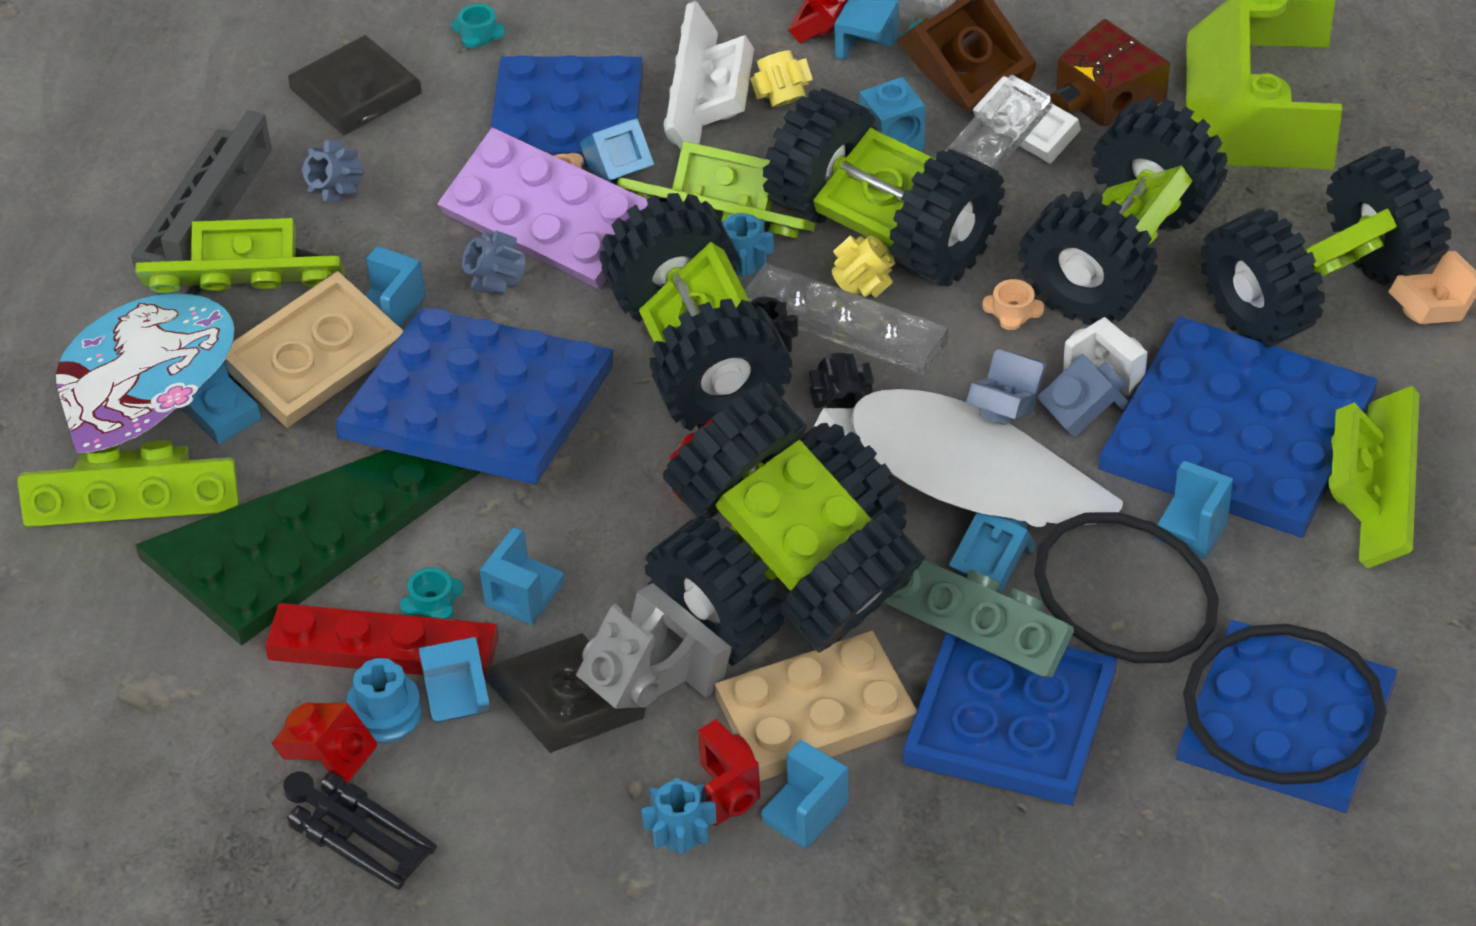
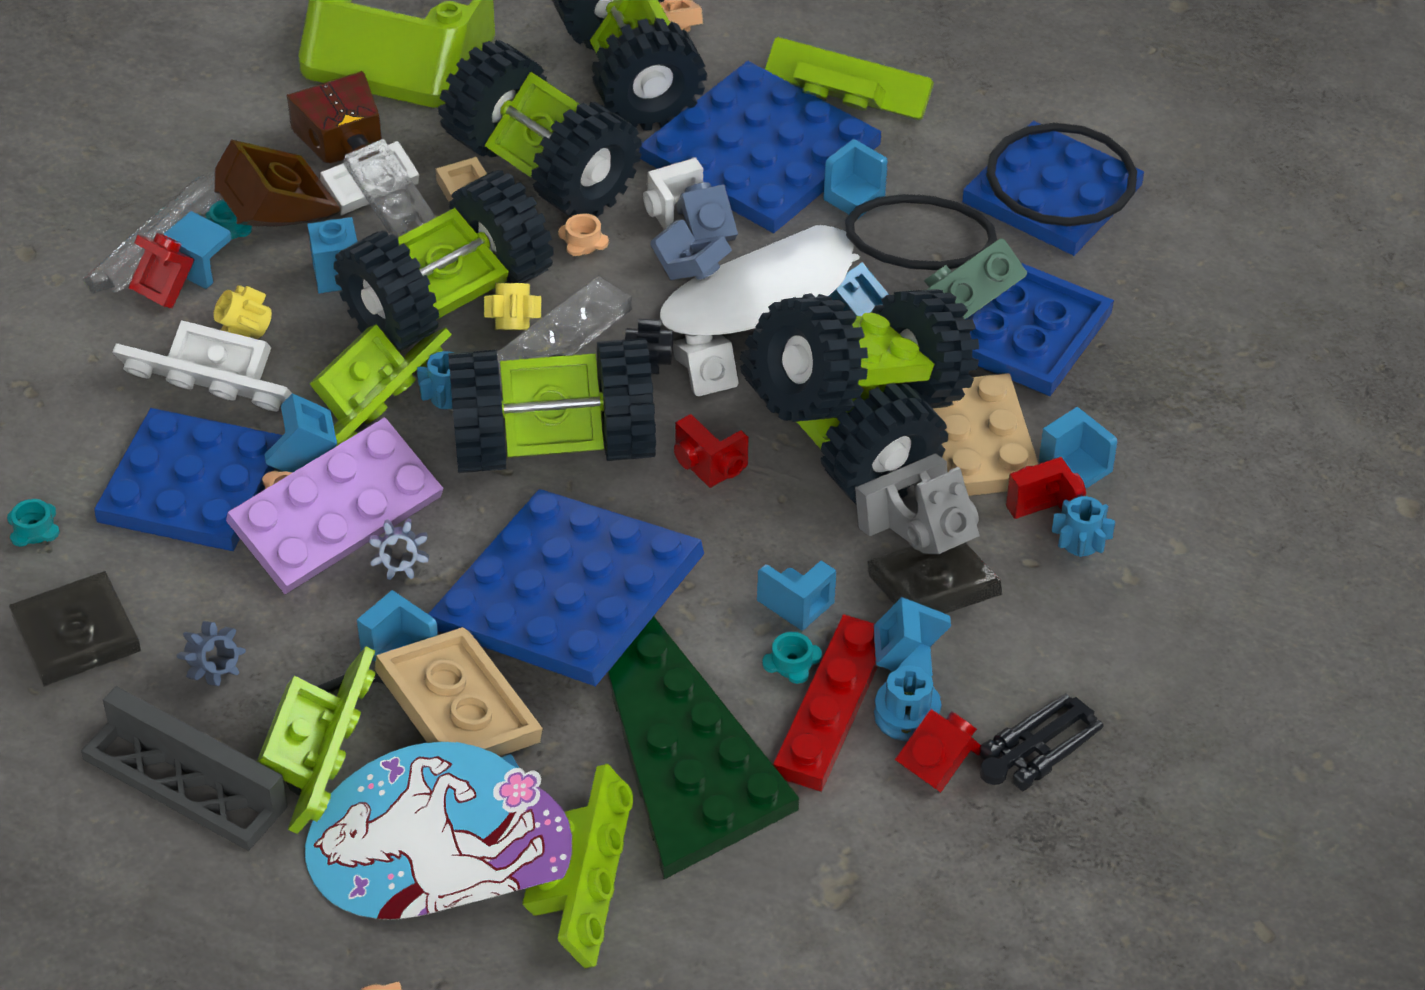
camera: 80 degrees left, 0 degrees up
(1048, 184) = (458, 174): none -> tan plate

